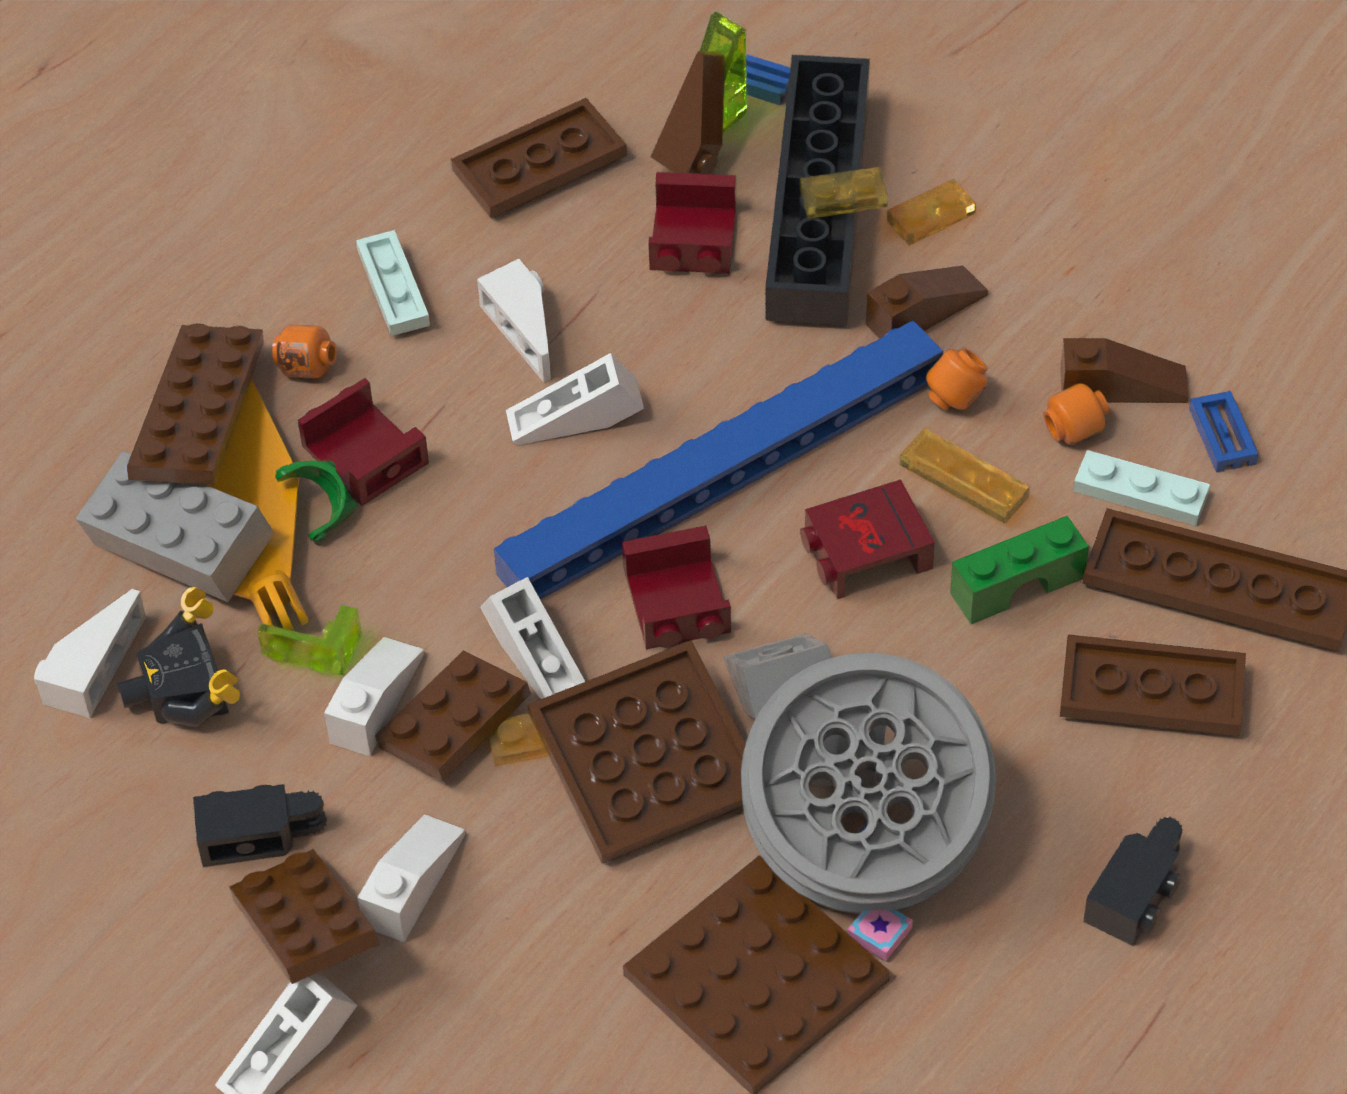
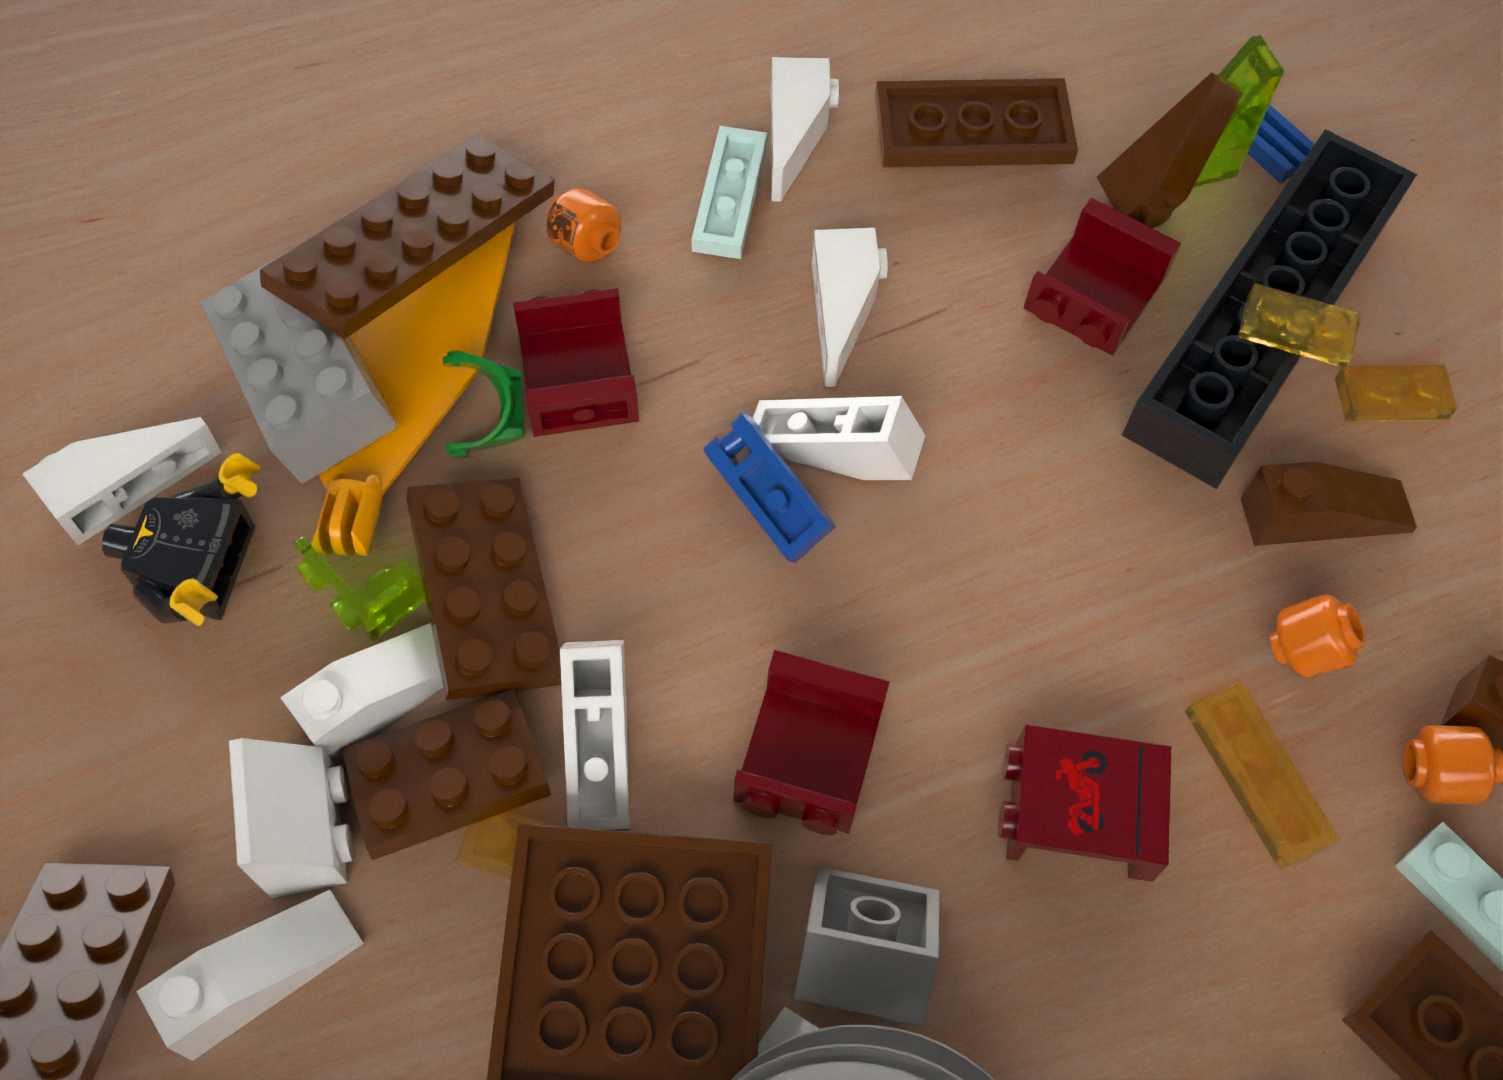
camera: 25 degrees right, 10 degrees up
(254, 823) = (122, 790): black hinge -> none
(376, 779) = (289, 816): none -> white slope
(400, 602) = (483, 588): none -> reddish brown plate
(402, 202) = (799, 115): none -> white slope
(552, 457) = (769, 489): none -> blue plate
(719, 462) = (962, 595): blue brick -> none
(989, 577) = (1235, 954): green arch -> none

